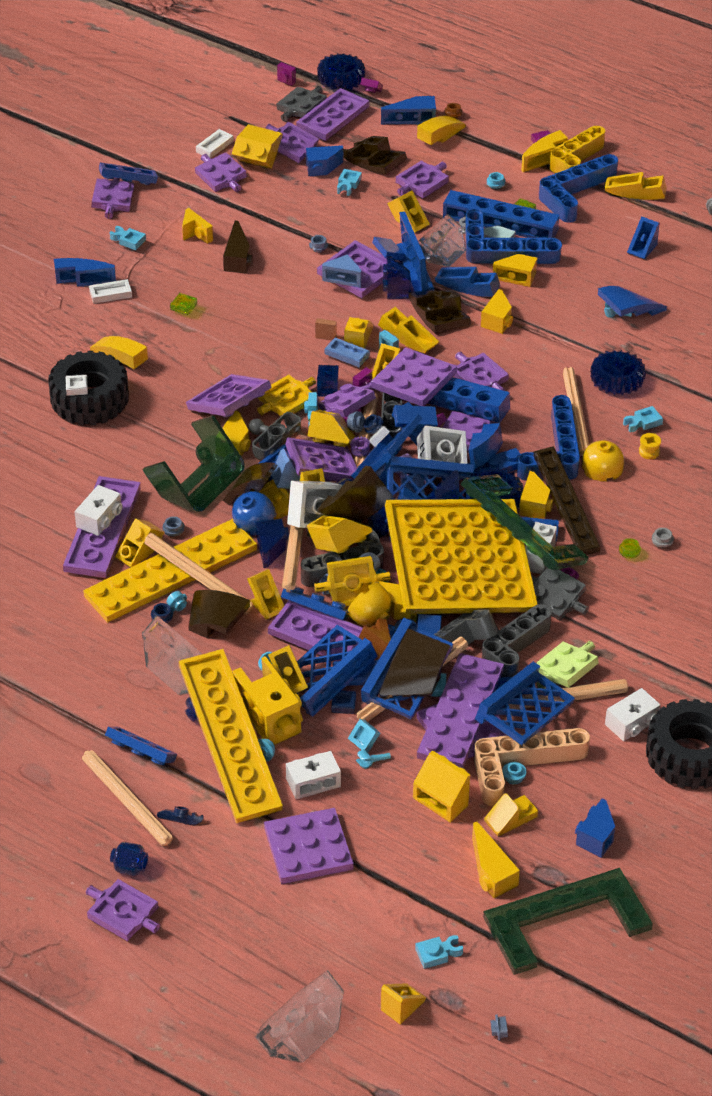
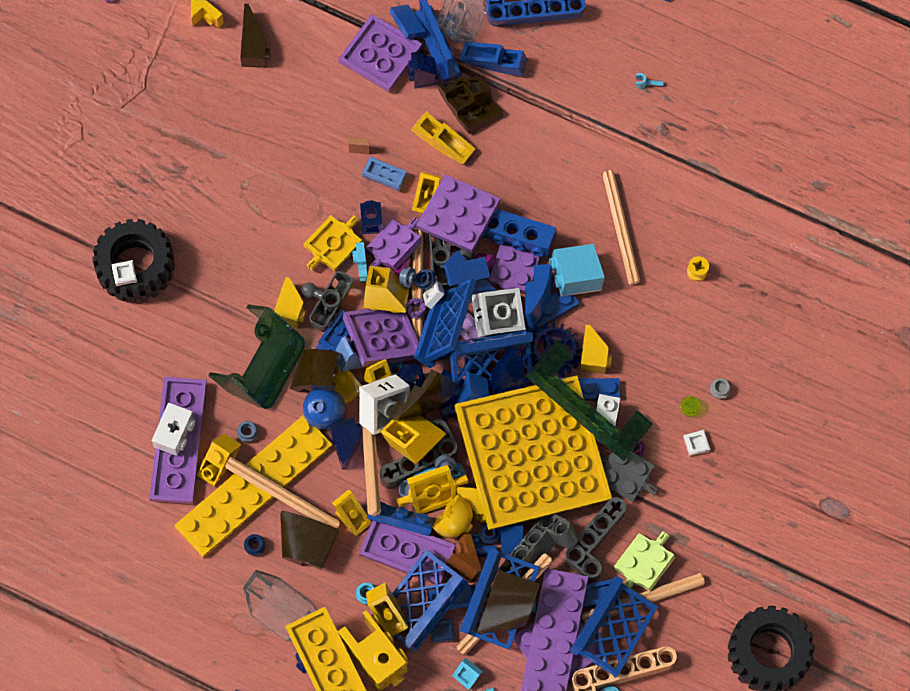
camera: 10 degrees left, 25 degrees up
(83, 271) = (98, 90): blue slope -> none
(110, 291) = (130, 112): white tile -> none
(124, 349) = (155, 199): yellow slope -> none
(130, 238) = (137, 34): medium azure plate -> none
(177, 601) = (266, 528): medium azure plate -> none
(183, 304) = (209, 124): clear neon green plate -> none
(229, 395) = (276, 254): medium lavender plate -> none
(318, 243) = (334, 14): sand blue plate -> none
(342, 271) = (367, 68): medium blue slope -> none
(358, 331) = (392, 144): yellow slope -> none
(363, 377) = (407, 214): magenta plate -> none
(388, 339) = (425, 158): medium azure plate -> none
(480, 371) = (521, 189): medium lavender plate -> none
(497, 313) = (530, 102): yellow slope -> none
(516, 269) = (541, 37): yellow slope -> none
(526, 431) = (577, 270): none -> medium azure piece
(564, 438) = (612, 277): blue beam -> none
(566, 500) = (624, 356): dark brown tile -> none
(603, 460) = (654, 294): yellow cylinder -> none
(617, 372) = (670, 166): clear blue gear -> none
(625, 301) = (660, 71): blue slope -> none
(631, 714) = (719, 606): white brick -> none
(633, 579) = (696, 443): none -> white tile
(645, 418) = (689, 231): medium azure plate -> none

